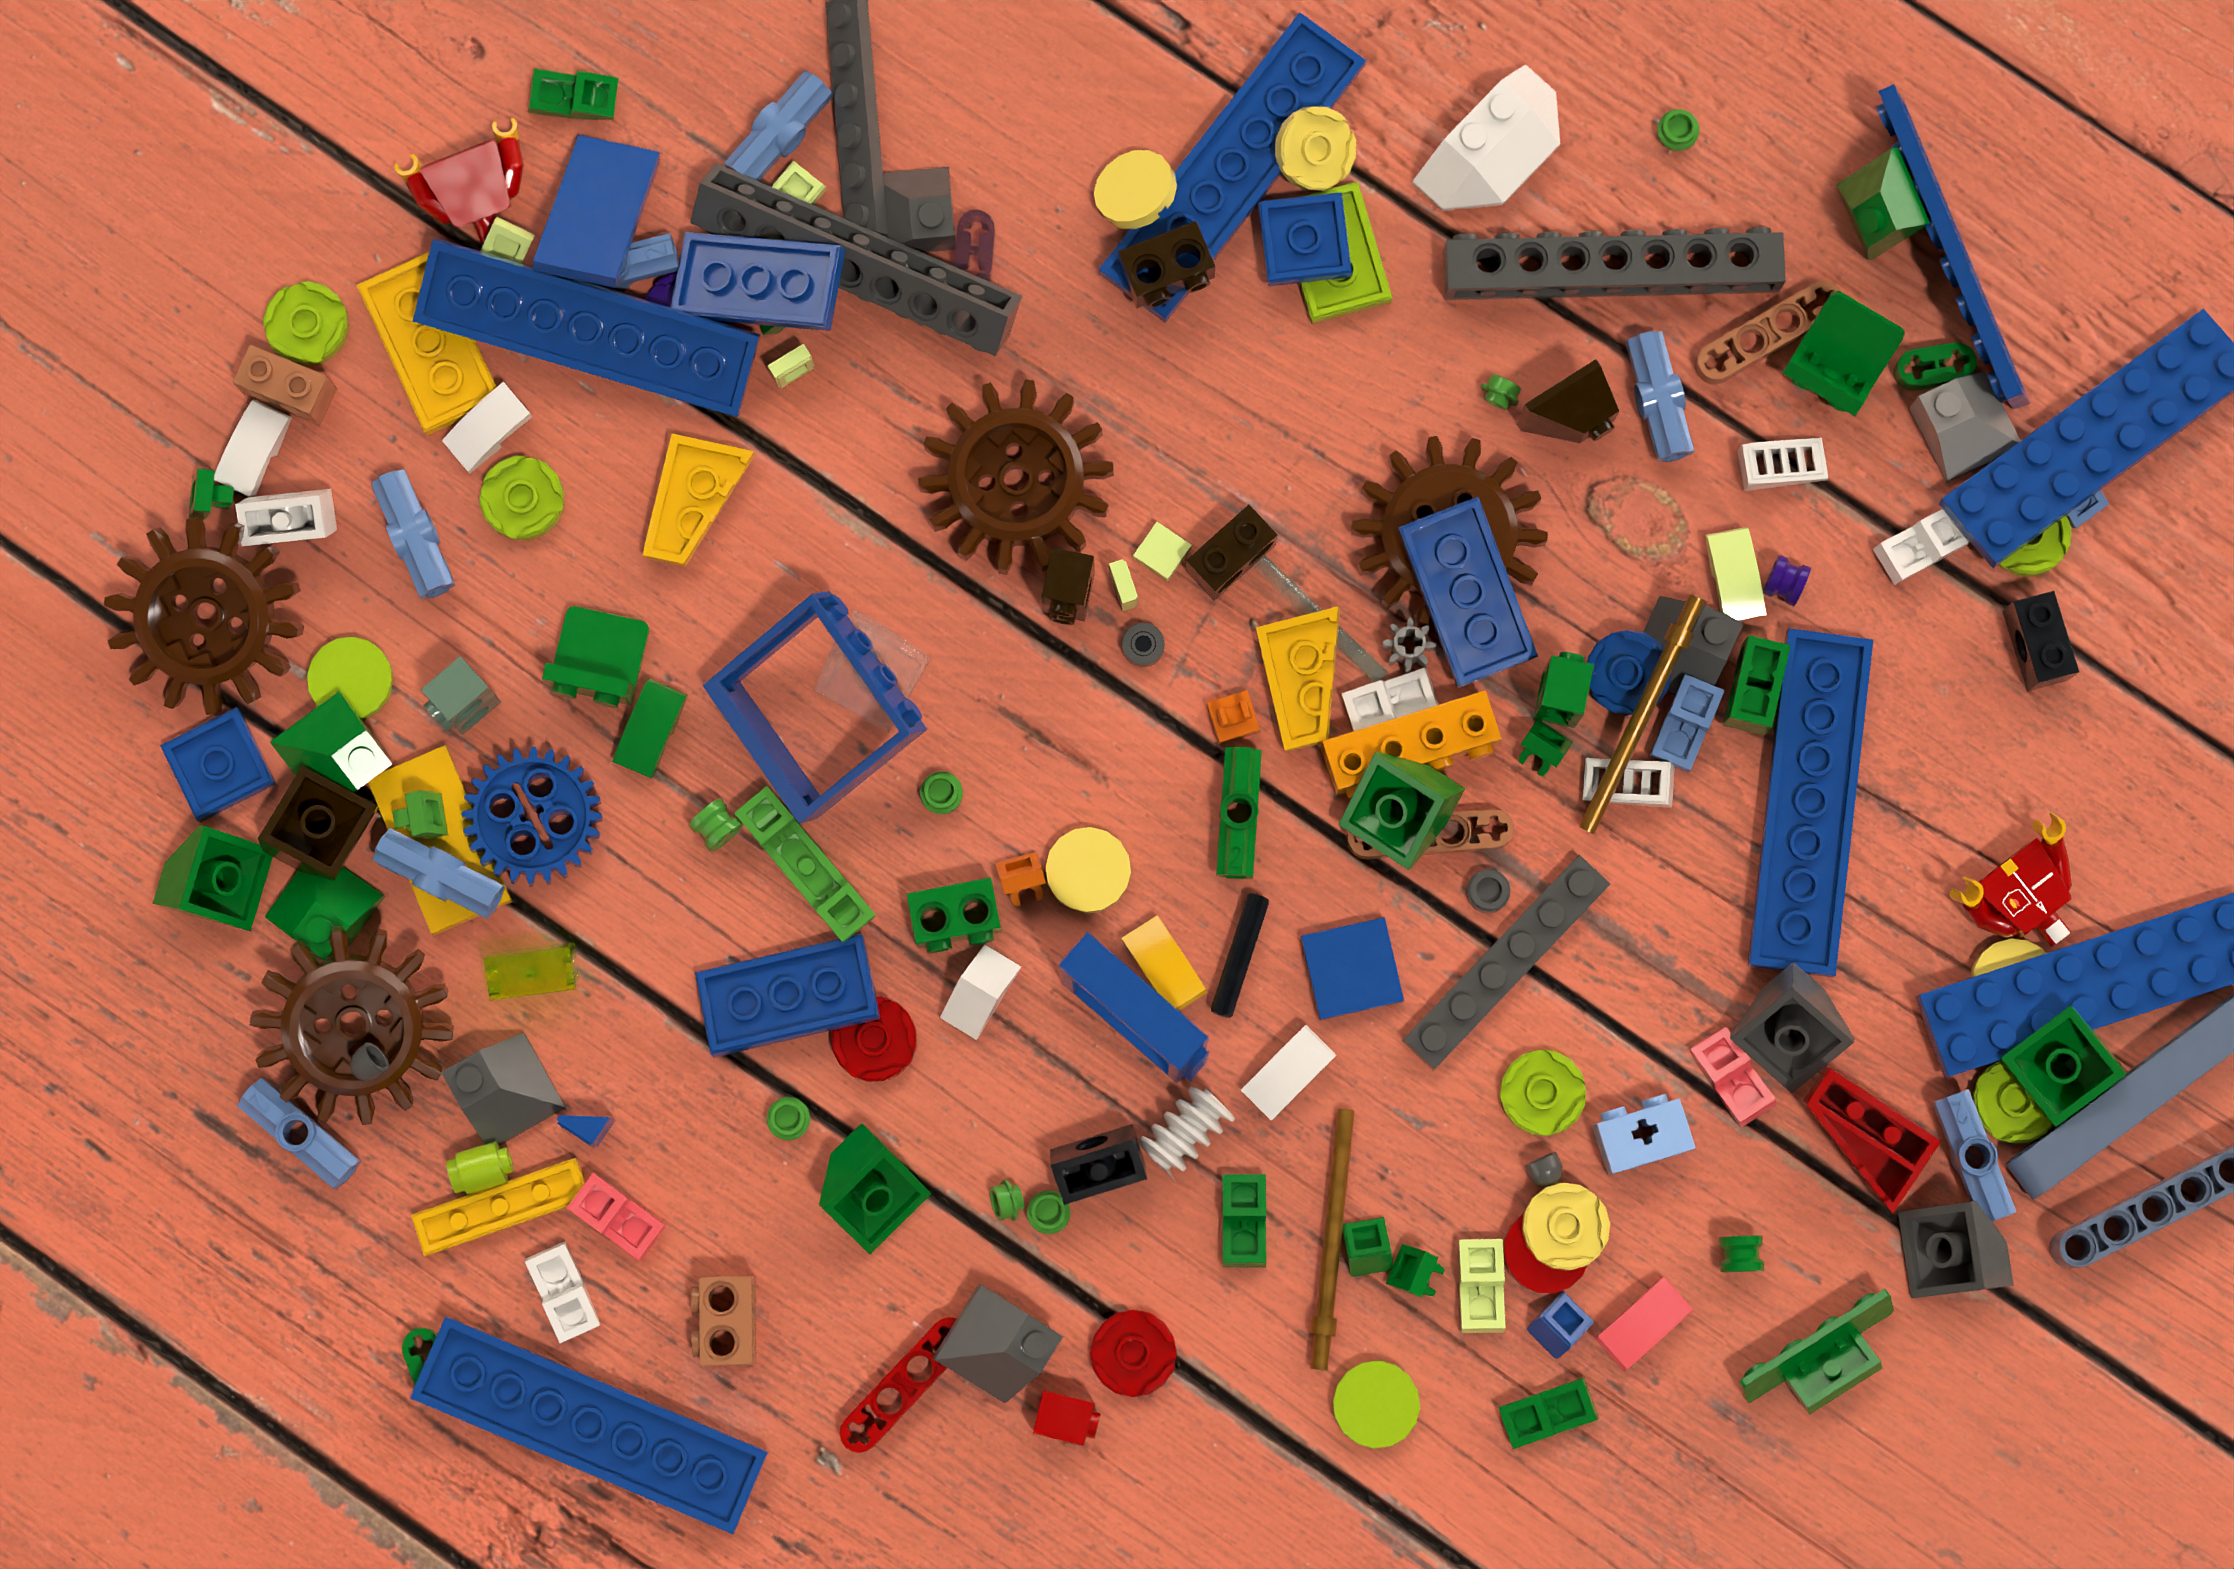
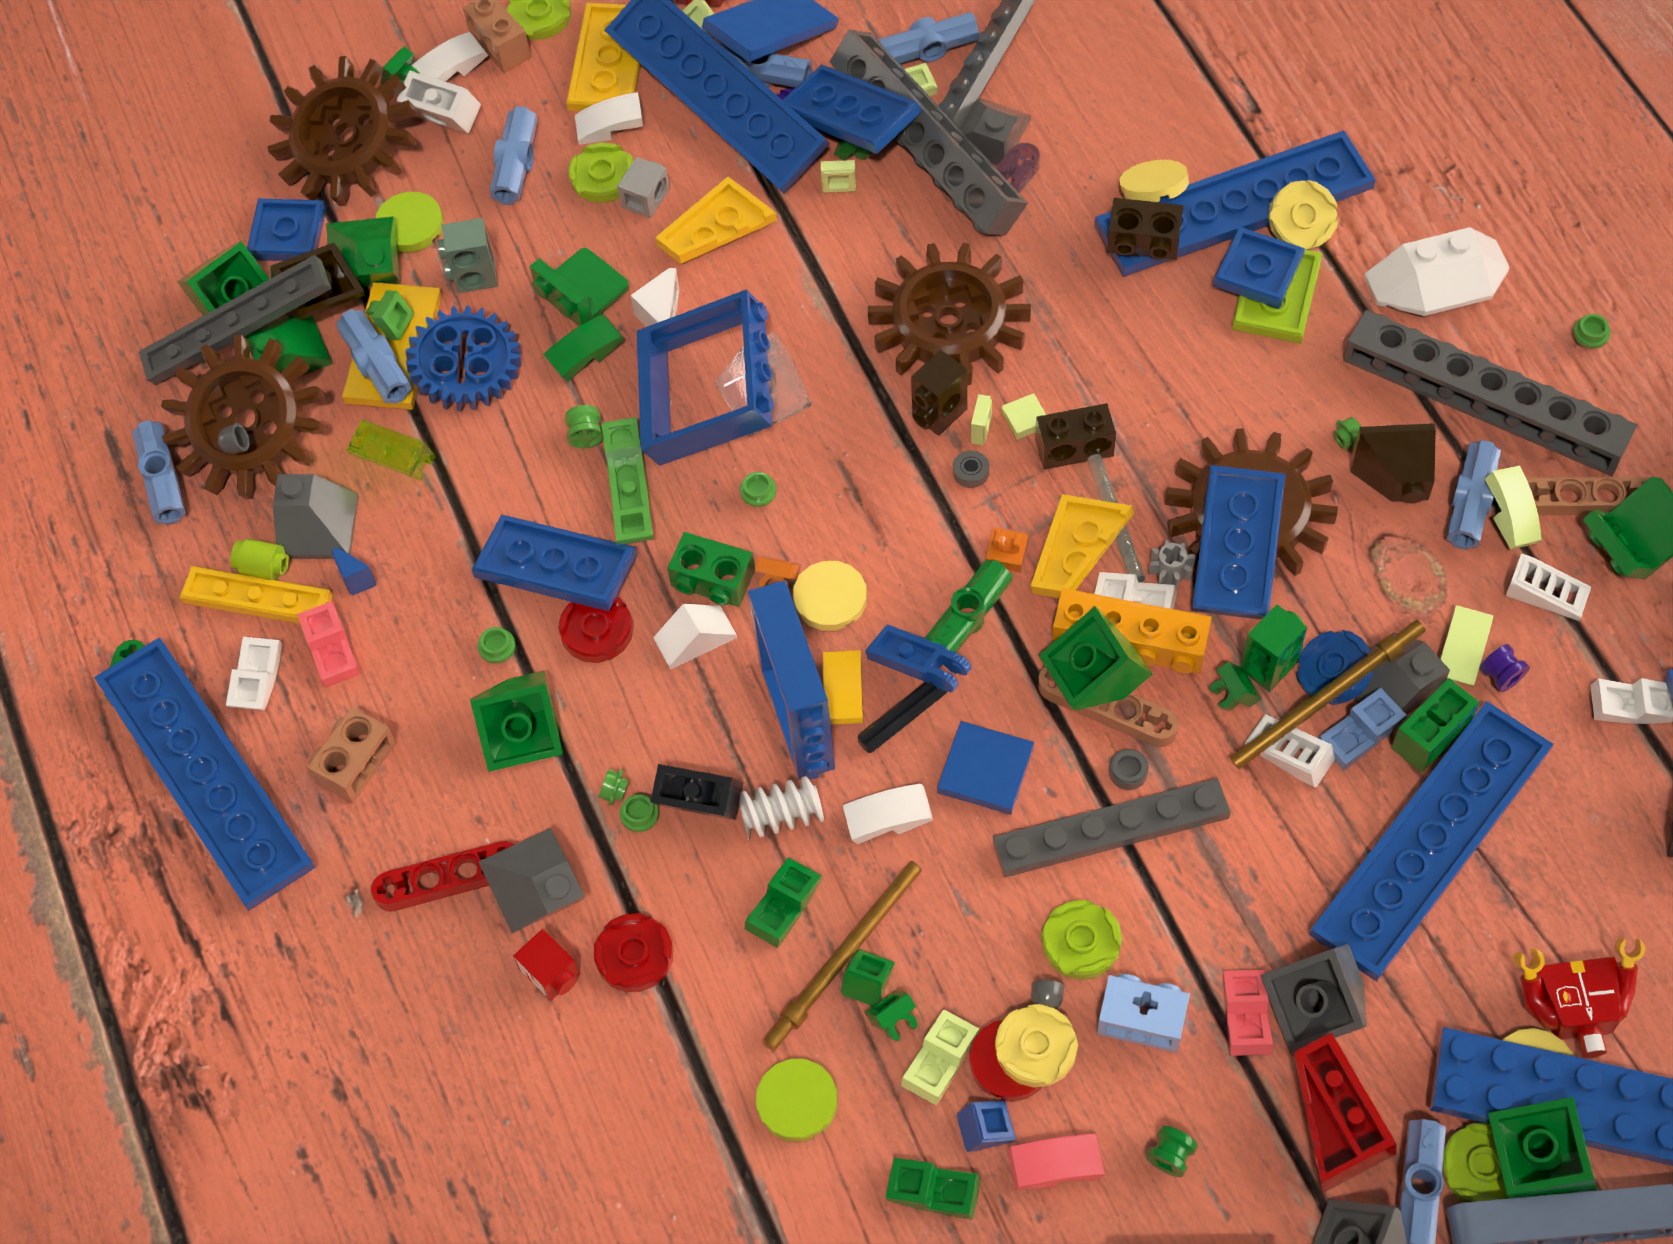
camera: 35 degrees right, 20 degrees down
(263, 921) = (236, 317): none -> dark grey plate
(586, 495) = (643, 187): none -> light grey brick
(697, 635) = (657, 298): none -> white slope
(1219, 895) = (917, 657): none -> blue hinge
(1705, 385) = (1519, 514): none -> yellowish green slope

